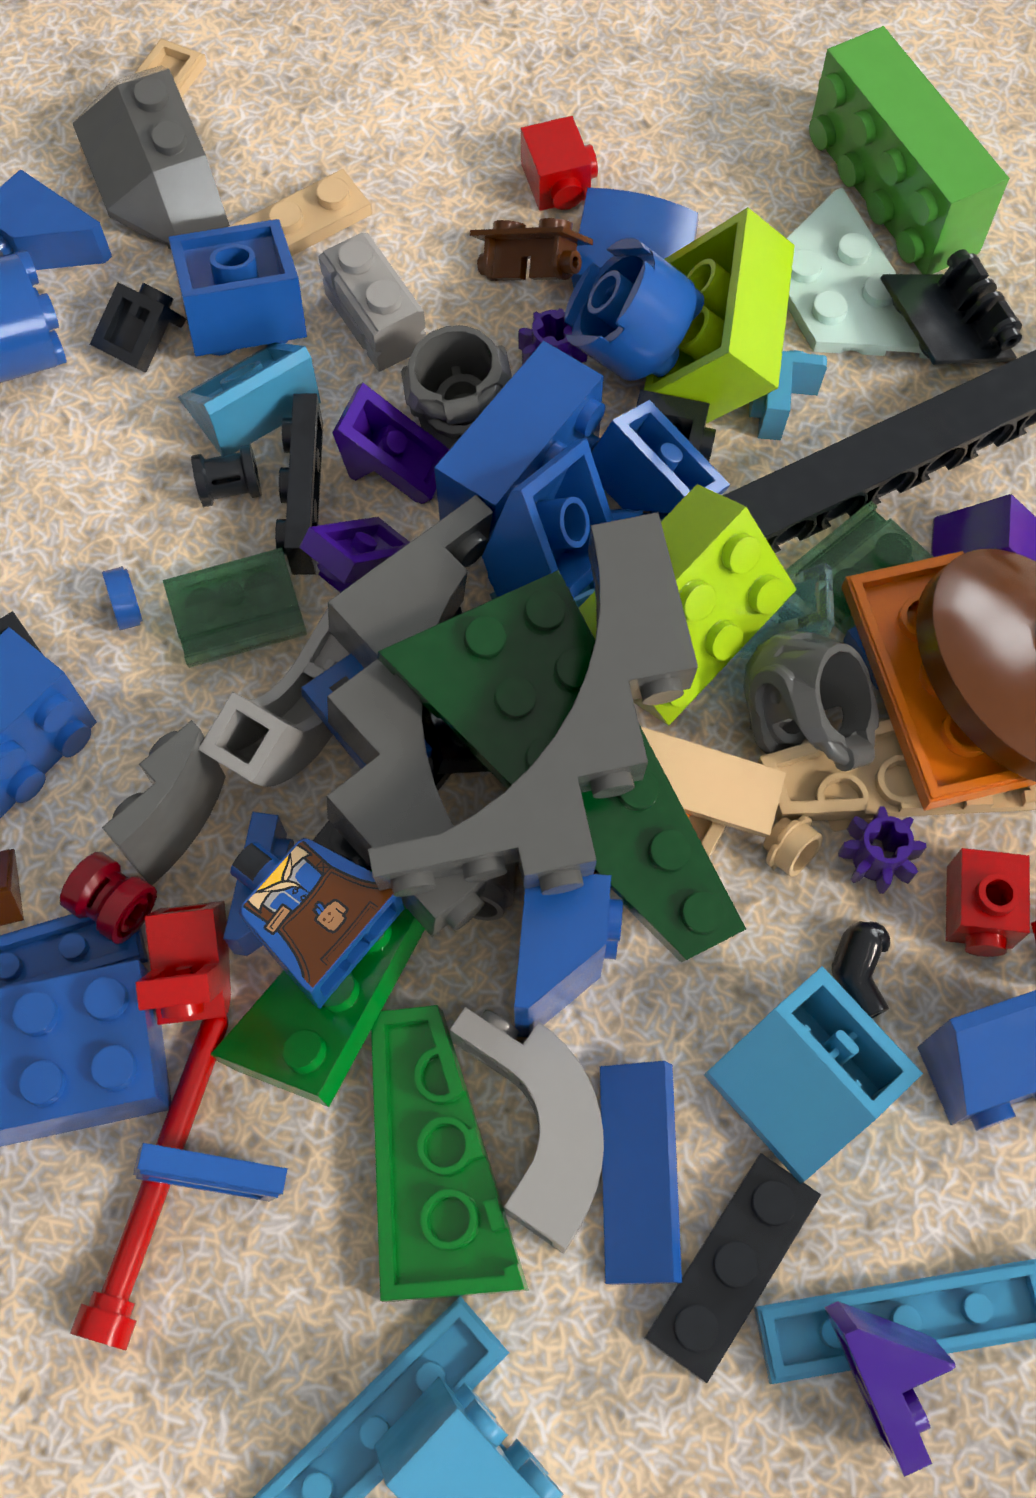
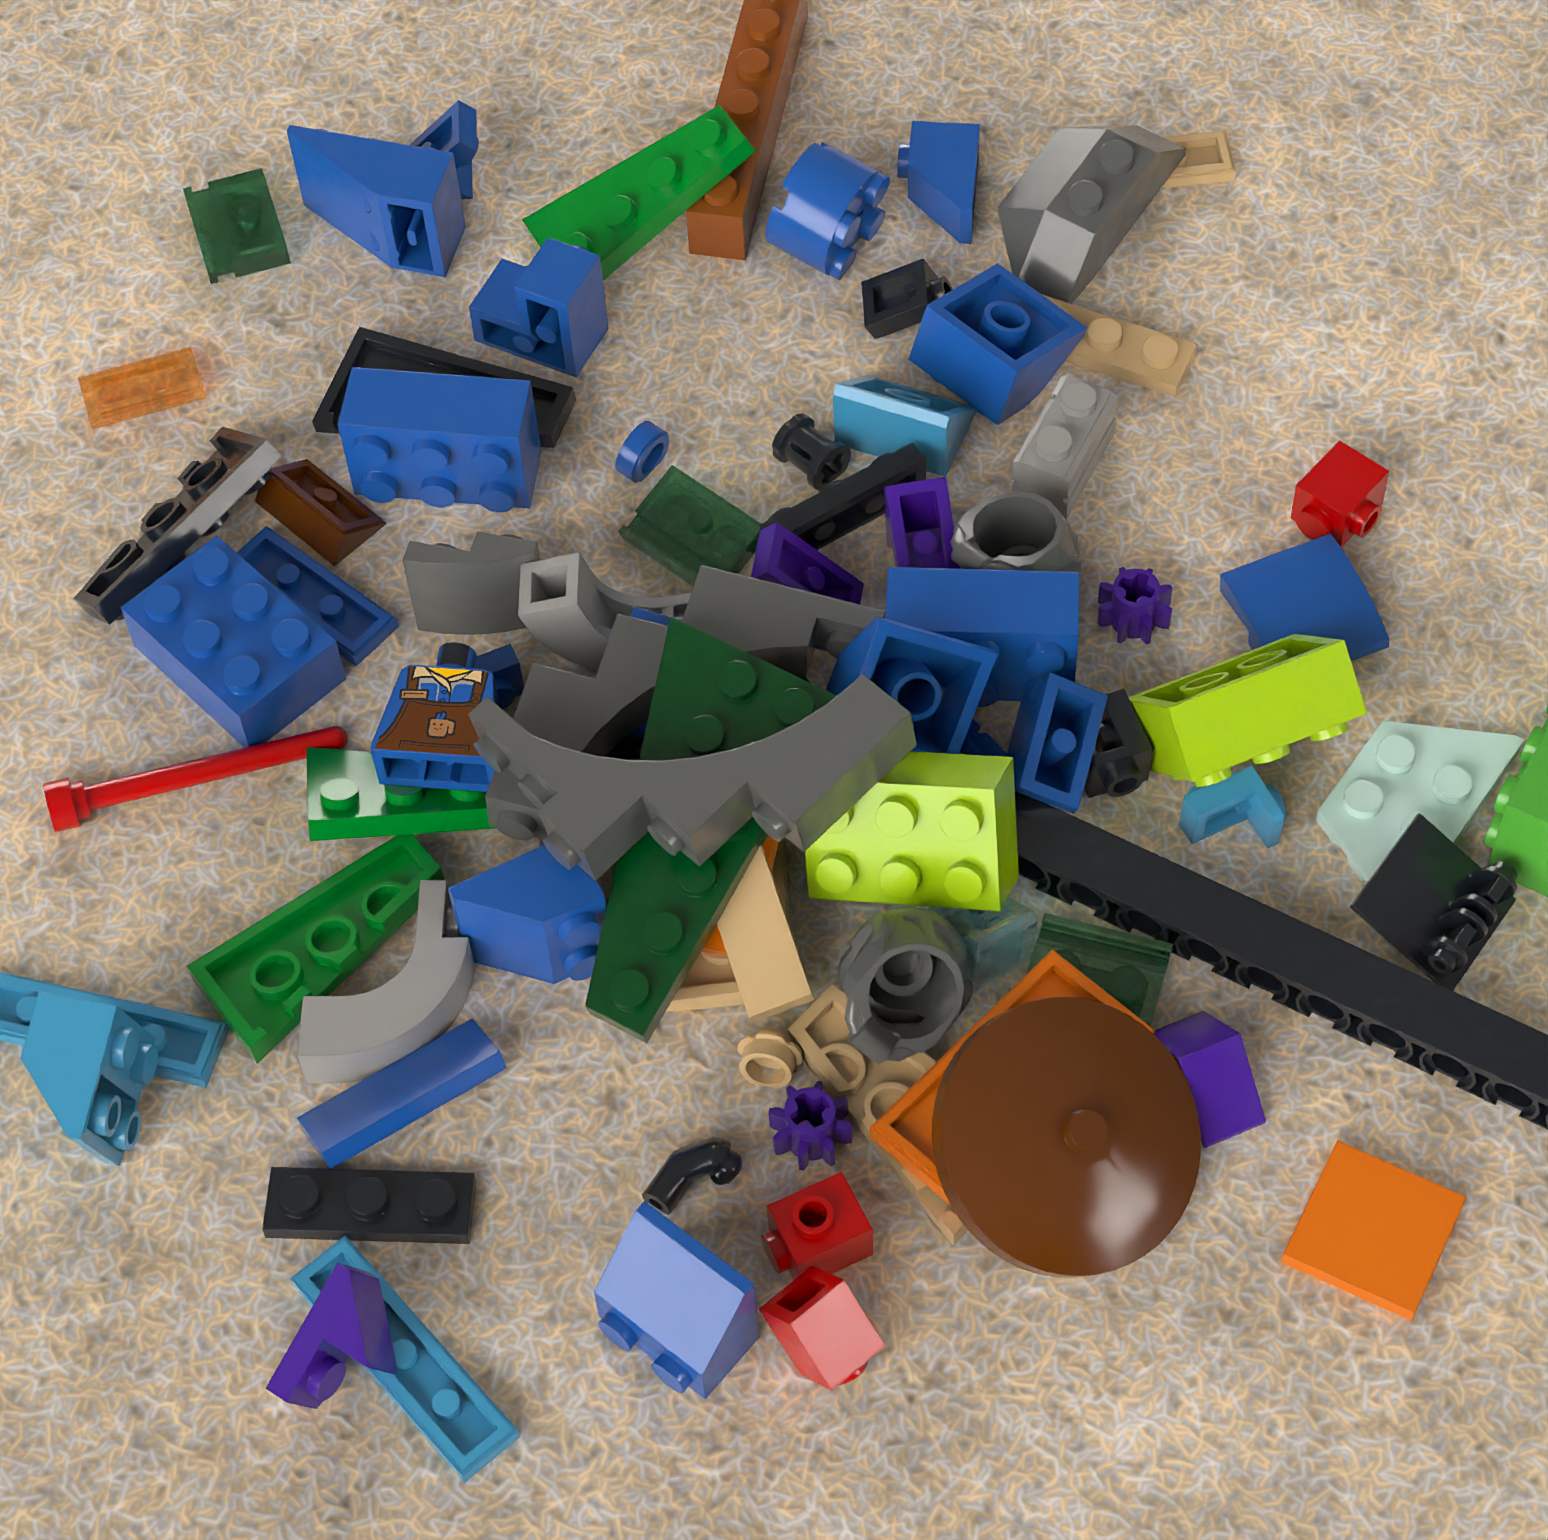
camera: 60 degrees right, 10 degrees down
(108, 897) = (376, 600): dark red wheel -> none
(187, 964) = (358, 685): red brick -> none
(209, 1172) = (209, 792): blue tile -> none
(549, 248) = (1216, 528): reddish brown hinge -> none
(632, 311) = (1185, 629): blue brick -> none
(813, 1075) = (558, 1164): dark azure slope -> none

